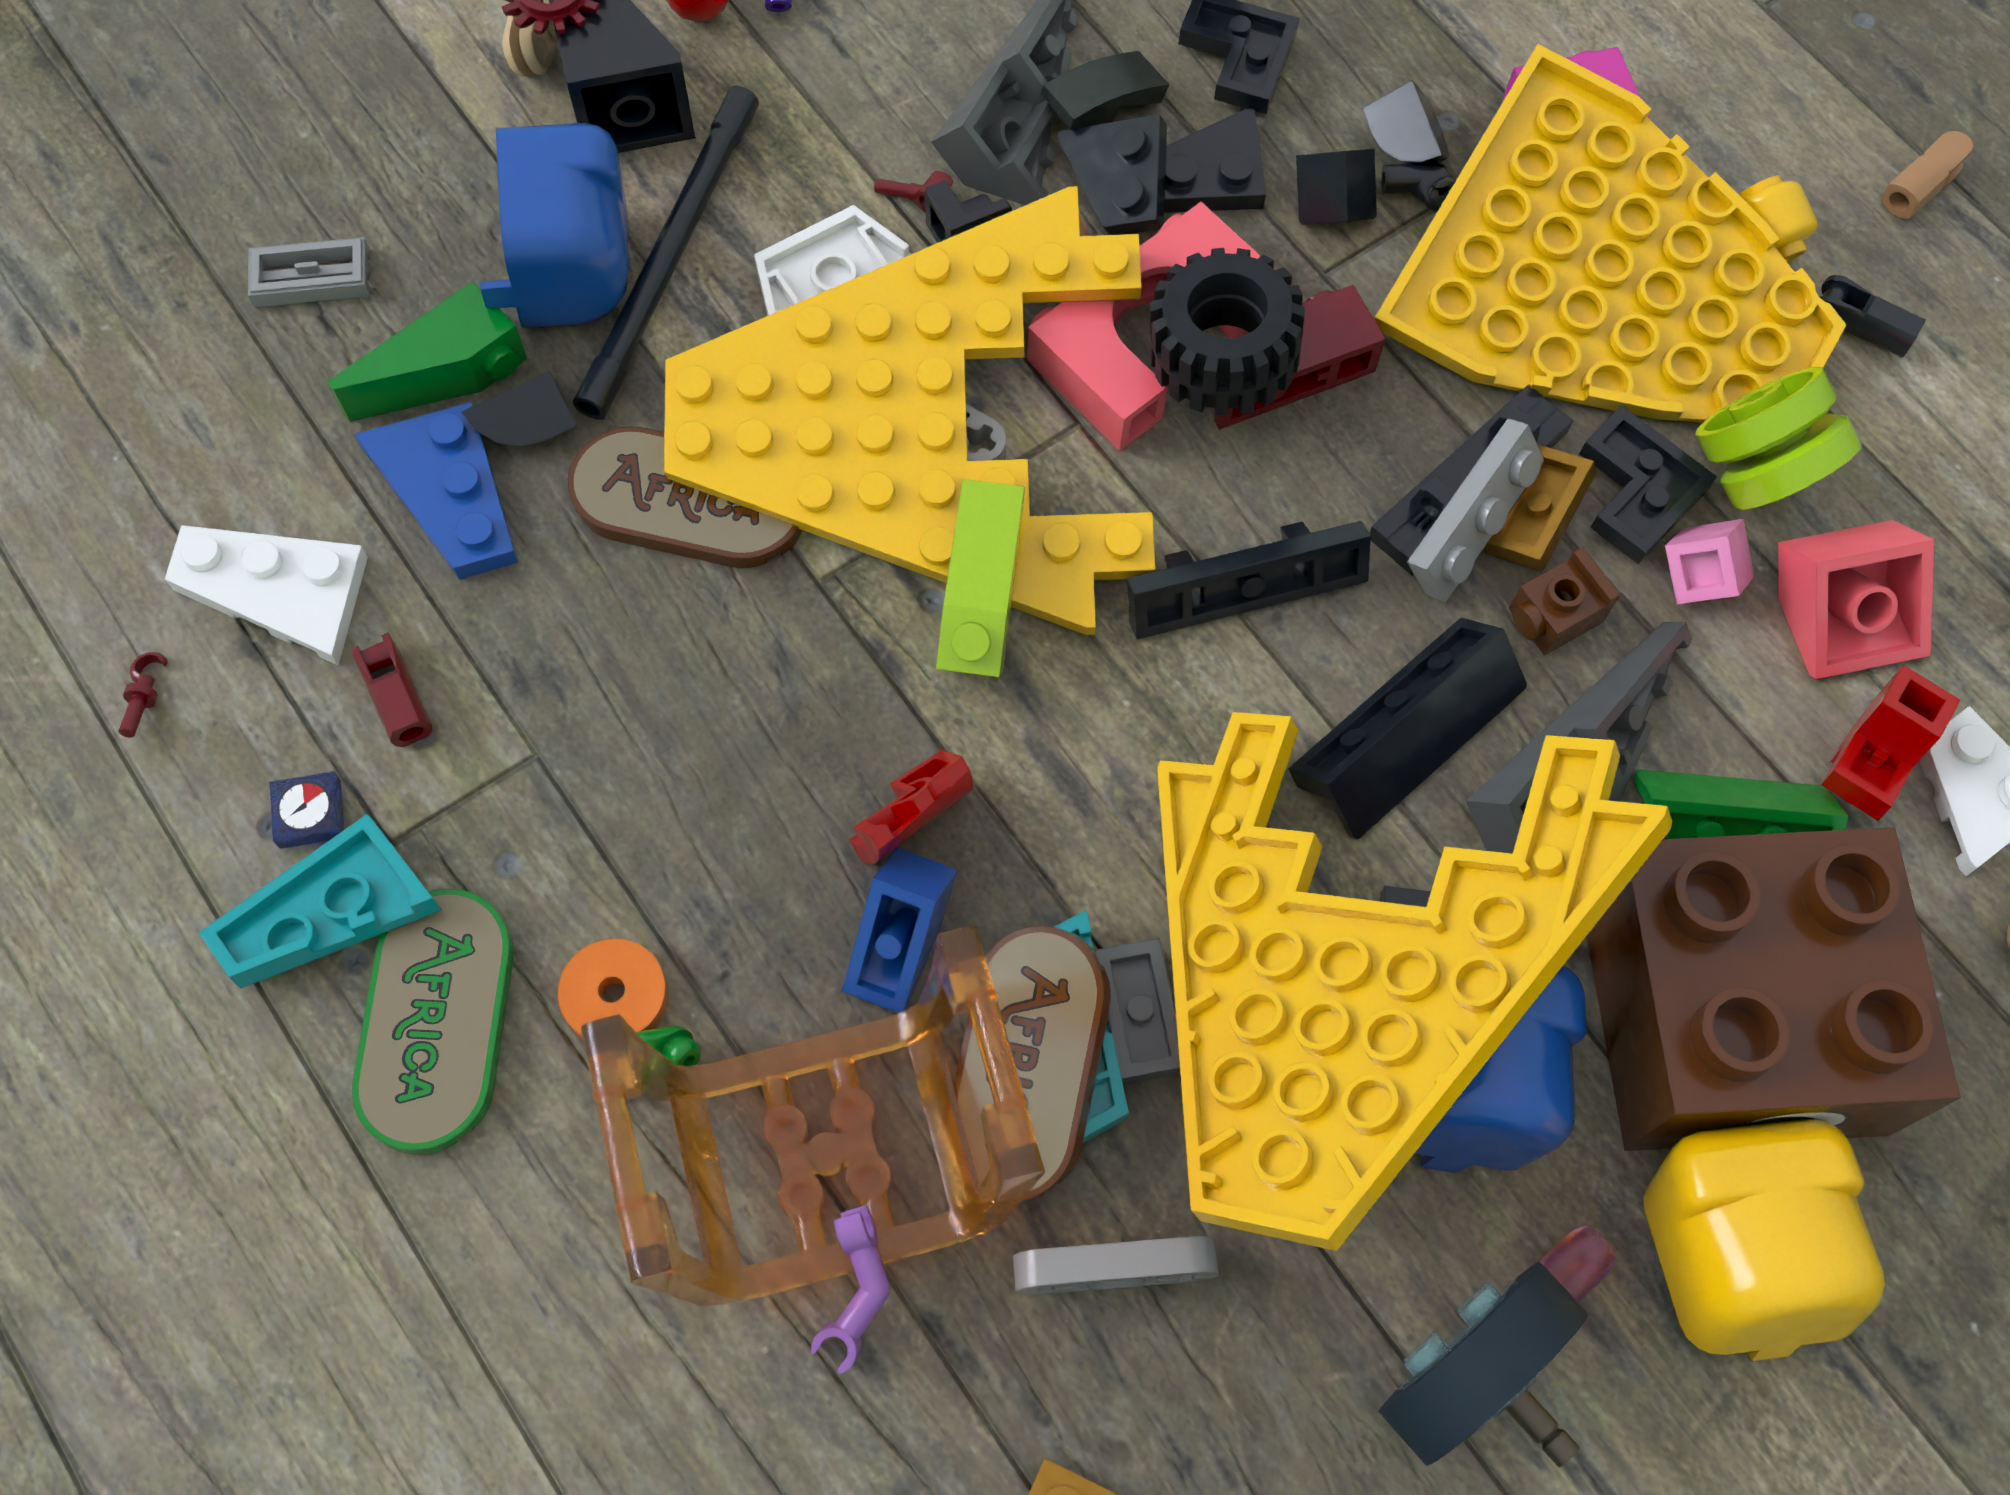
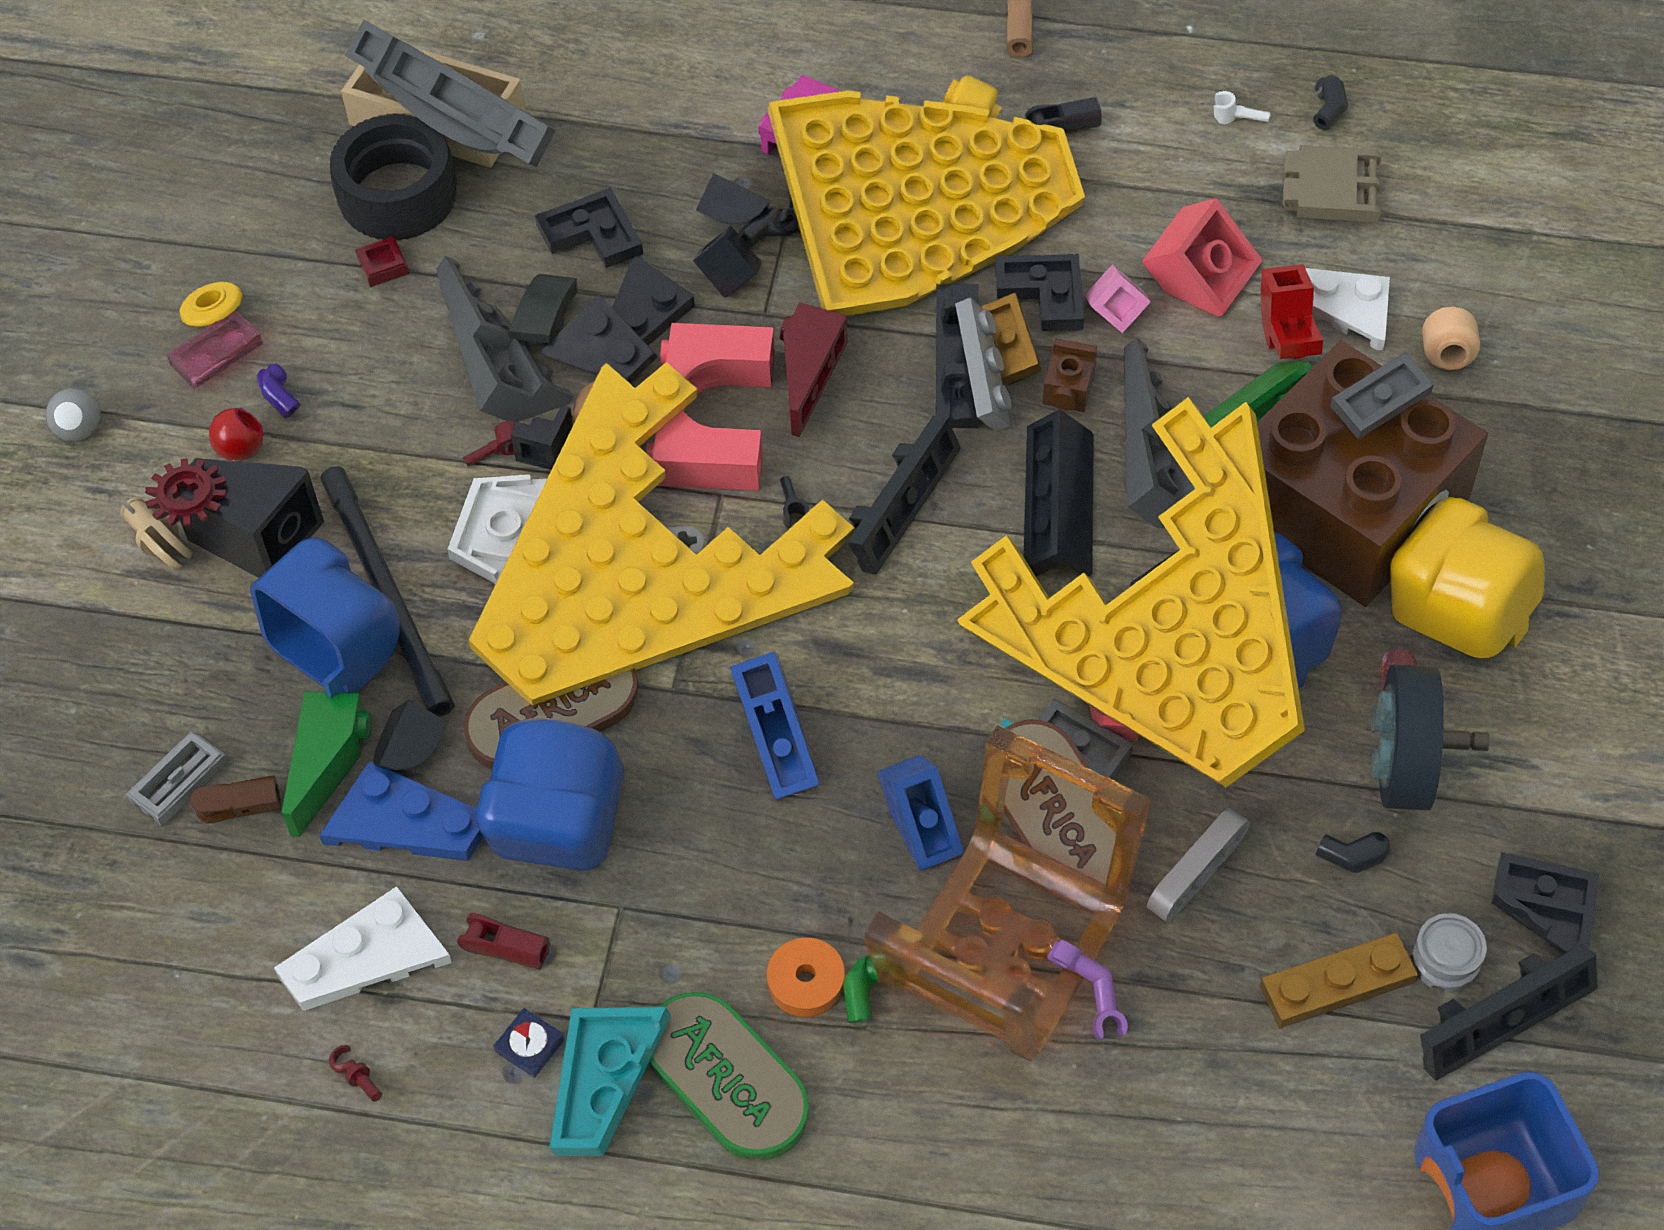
camera: 40 degrees left, 10 degrees down
(323, 333) = (238, 799): none -> reddish brown bar
(567, 583) = (551, 794): none -> blue piece
(860, 703) = (775, 724): none -> blue slope
(921, 798) = (862, 739): red slope -> none
(980, 579) = (776, 604): lime slope -> none
(1134, 490) = (792, 503): none -> black hand
(1232, 293) = (766, 346): black tyre -> none
(1300, 1425) = (1357, 855): none -> black arm
(1779, 439) = (1093, 209): lime wheel -> none
(1862, 940) = (1381, 395): none -> dark grey plate

